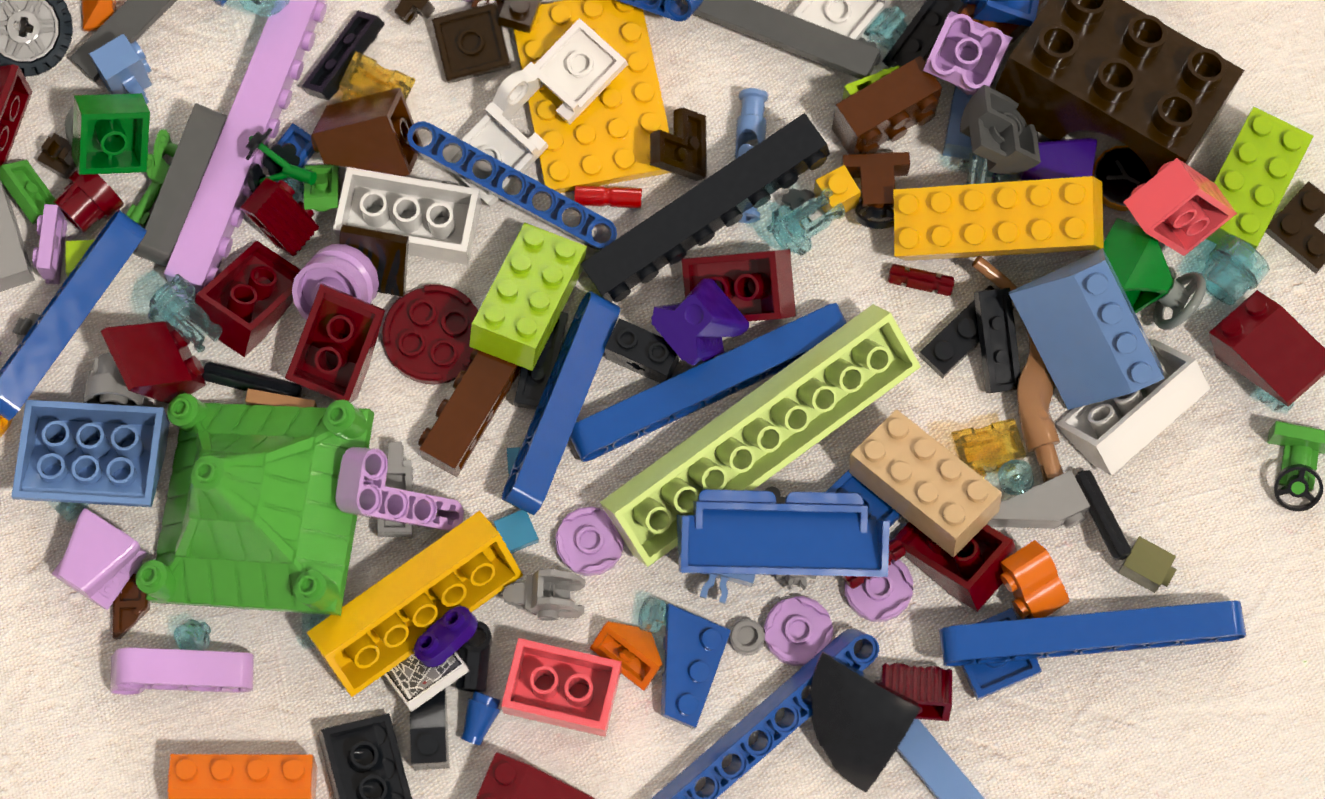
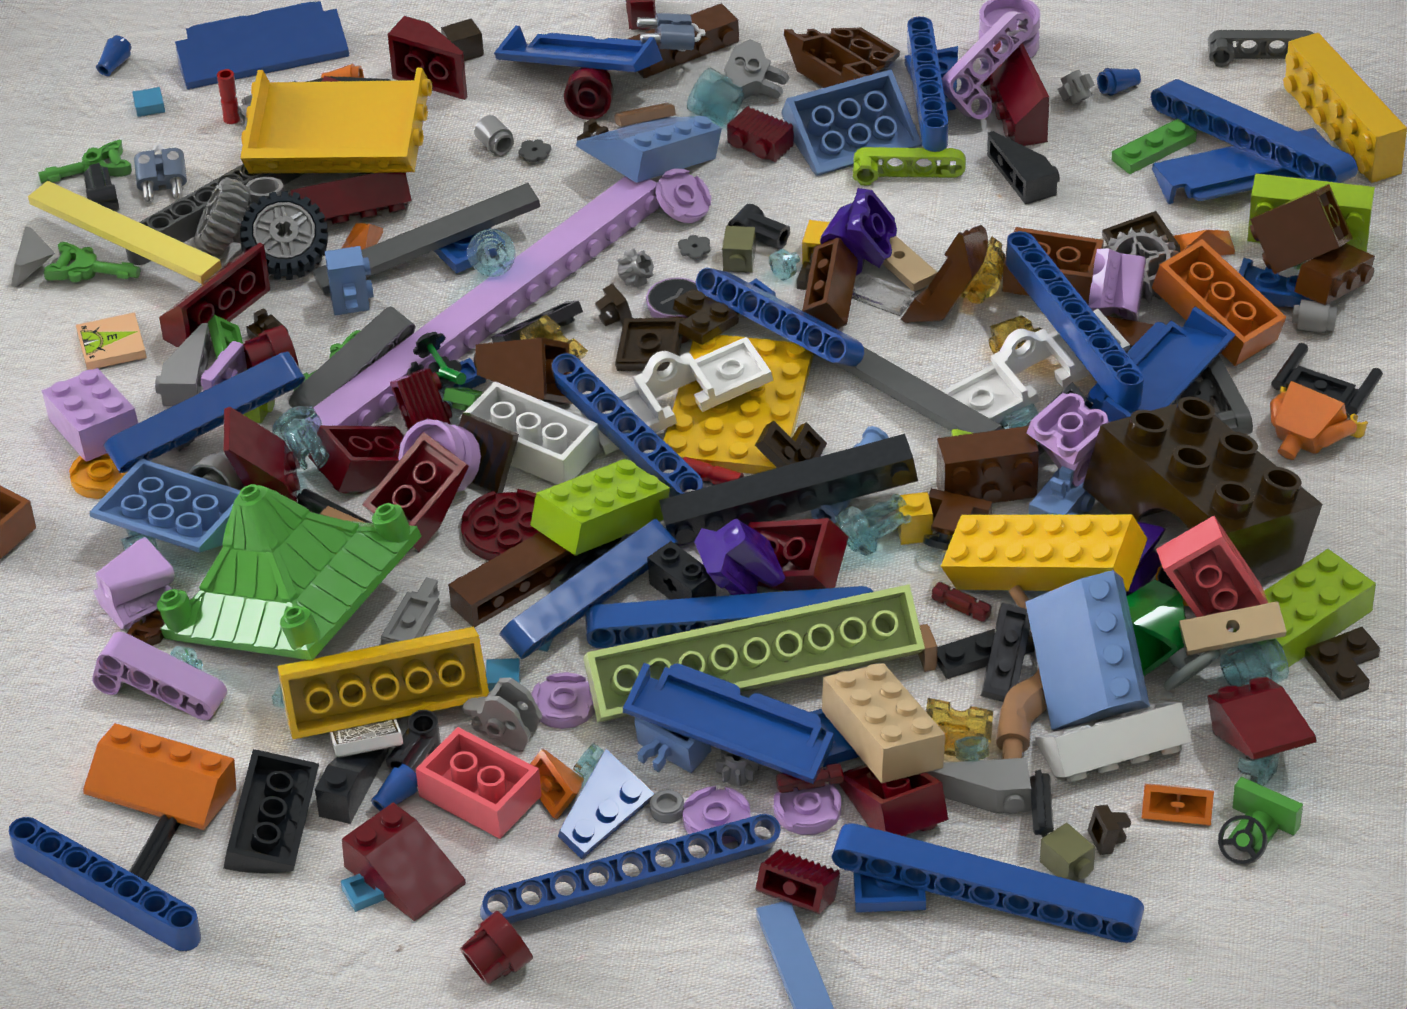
camera: 25 degrees right, 30 degrees down
(109, 133) = (310, 305): green piece -> none
(364, 493) = (409, 595): lavender beam -> none
(445, 636) = (384, 715): dark purple plate -> none
(857, 719) = (731, 877): black brick -> none
(920, 354) = (929, 655): none -> medium nougat tile
(1000, 132) = (1074, 487): dark grey brick -> none
(1033, 581) = (949, 821): orange brick -> none
(1171, 521) = (1106, 828): none -> dark brown tile
(1221, 459) = (1177, 804): none -> orange slope
(1232, 248) = (1251, 623): none -> tan tile

